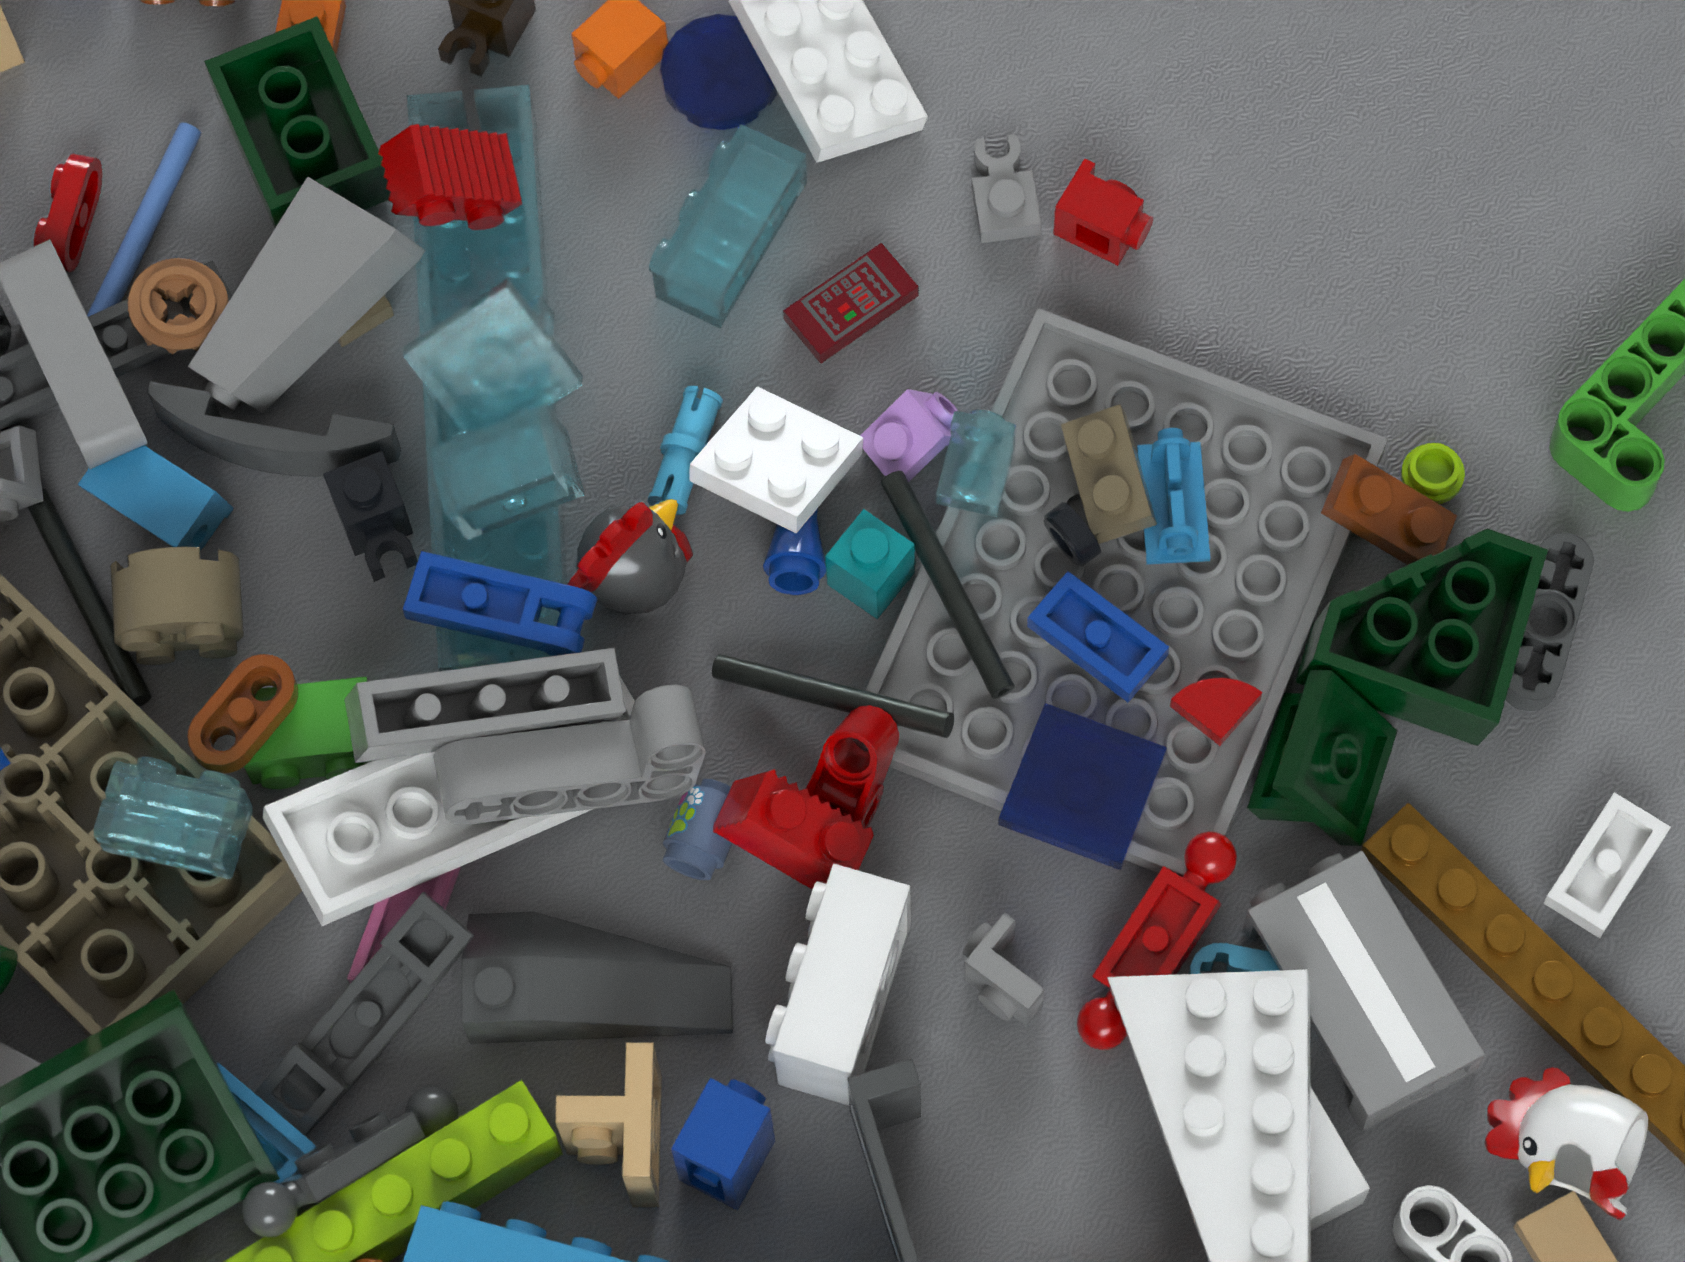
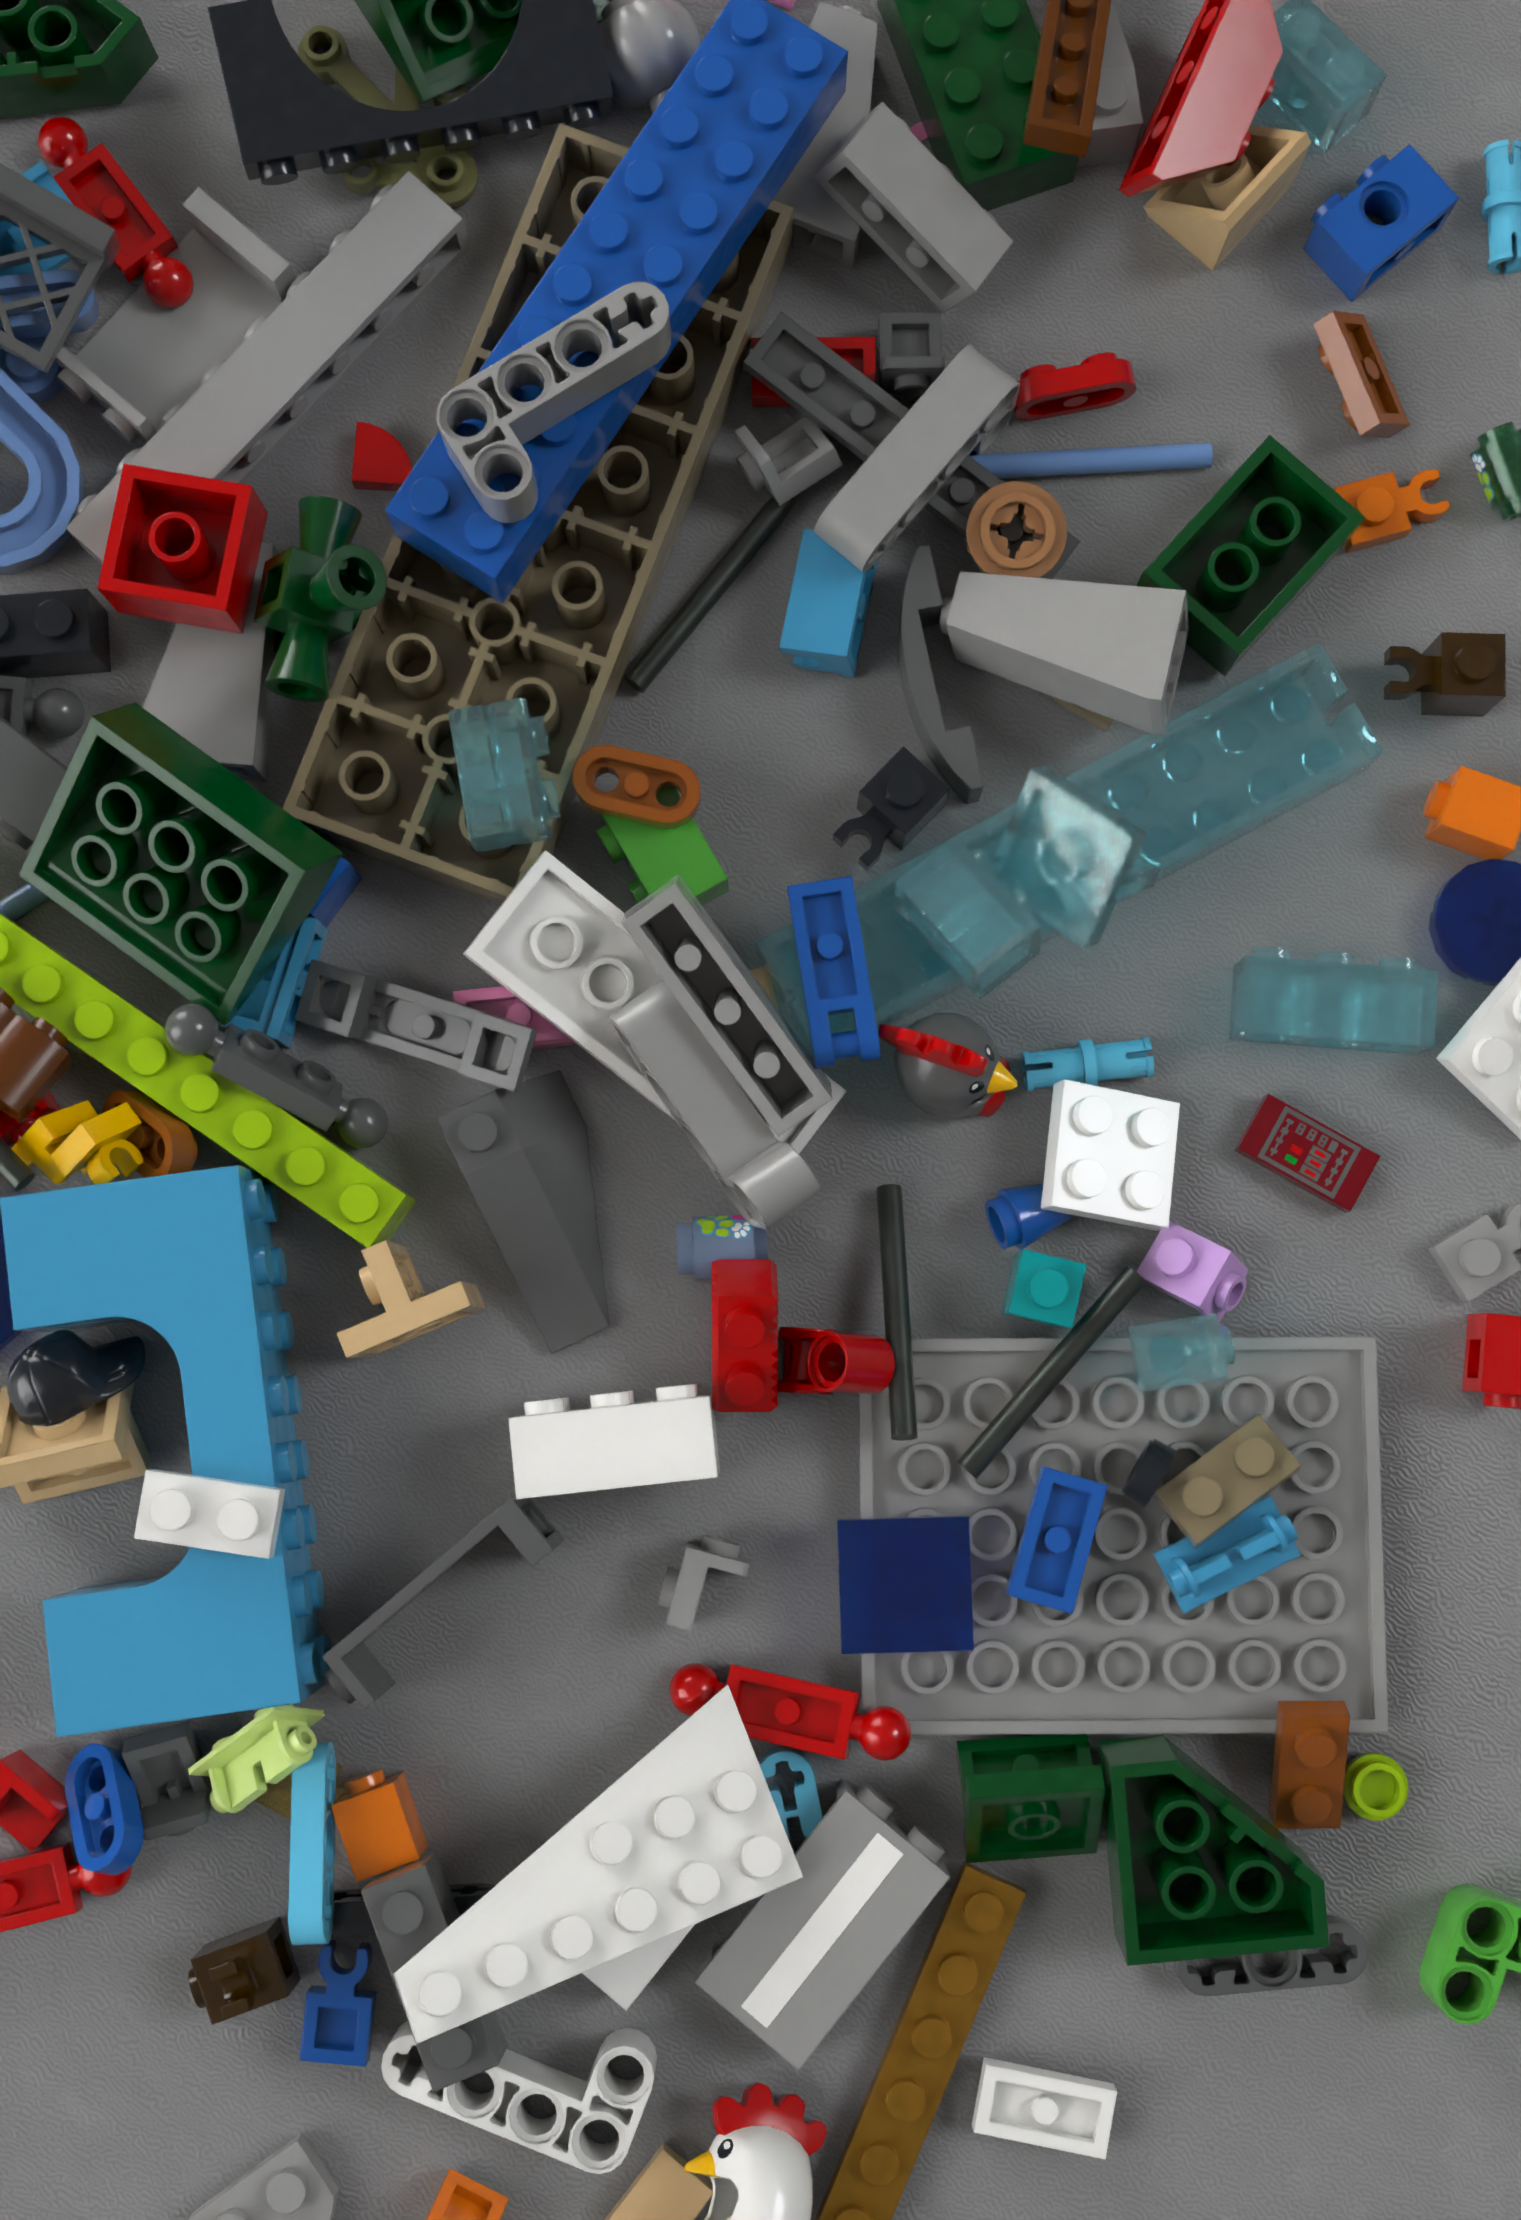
camera: 65 degrees right, 15 degrees up
(177, 603) = (727, 674): dark tan brick -> none
(451, 176) = (1251, 724): red brick -> none
(724, 1141) = (427, 1402): blue brick -> none
(1216, 705) = (1037, 1679): red tile -> none

